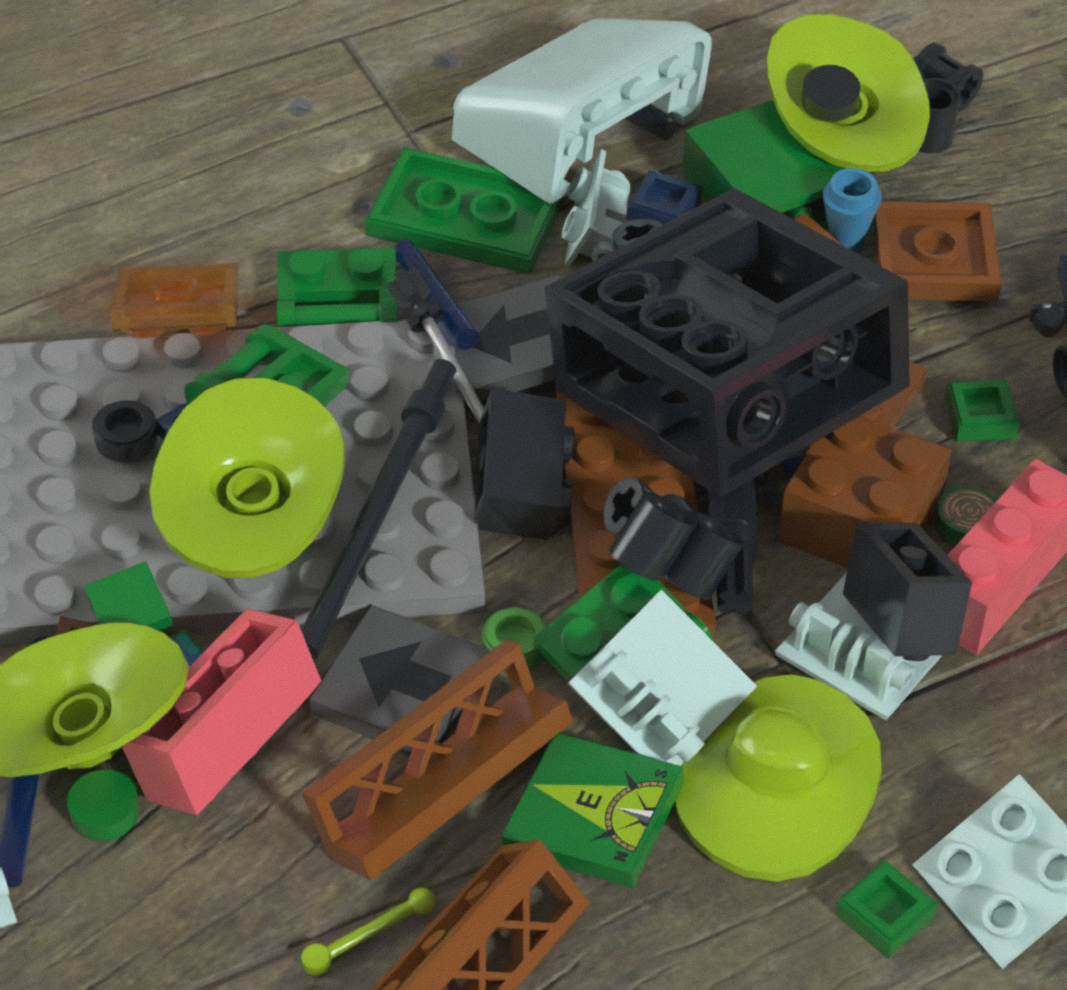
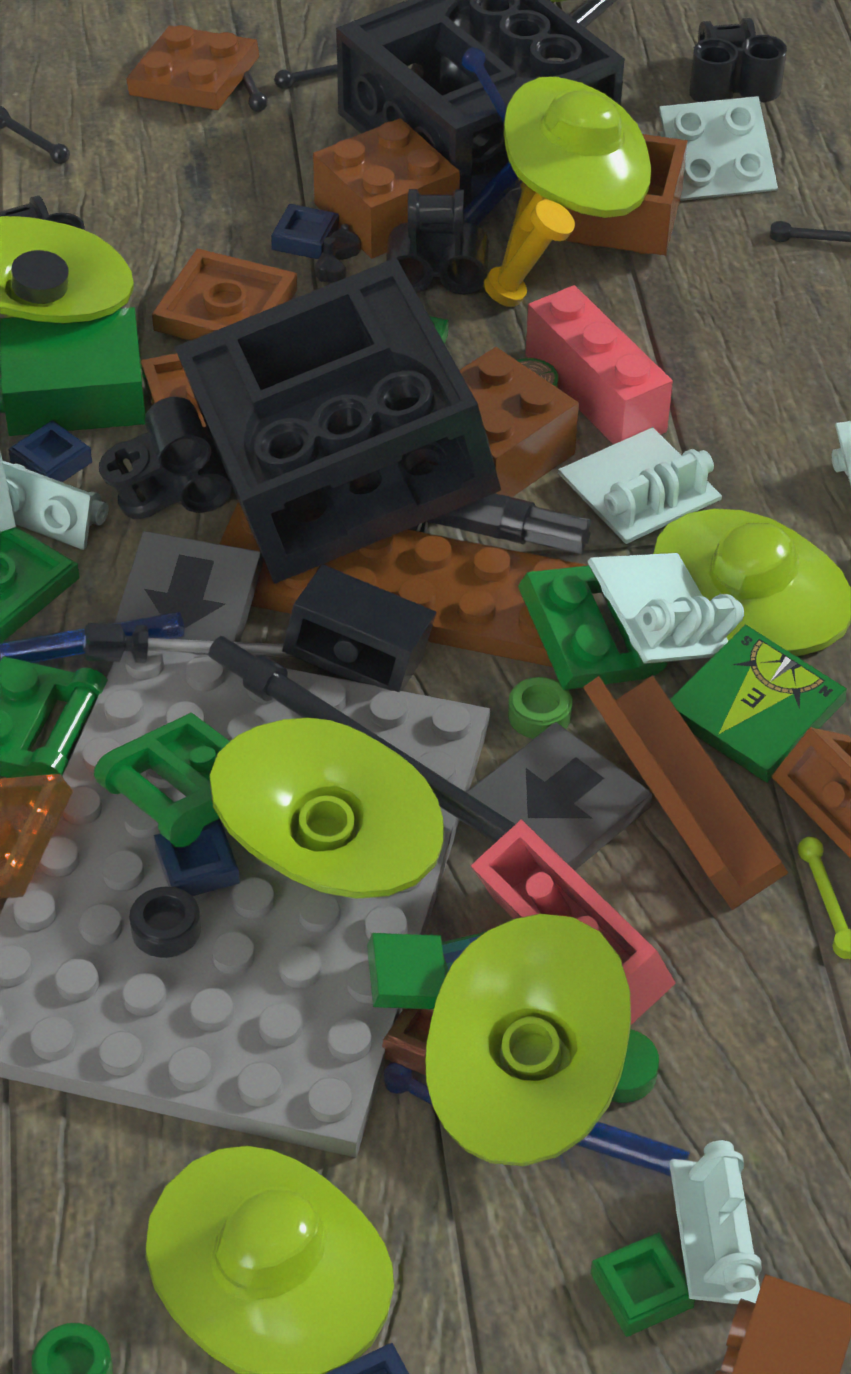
camera: 70 degrees left, 0 degrees up
(668, 538) = (534, 539): black piece -> none
(850, 206) = (162, 320): dark azure cone -> none
(906, 590) = (641, 417): black brick -> none

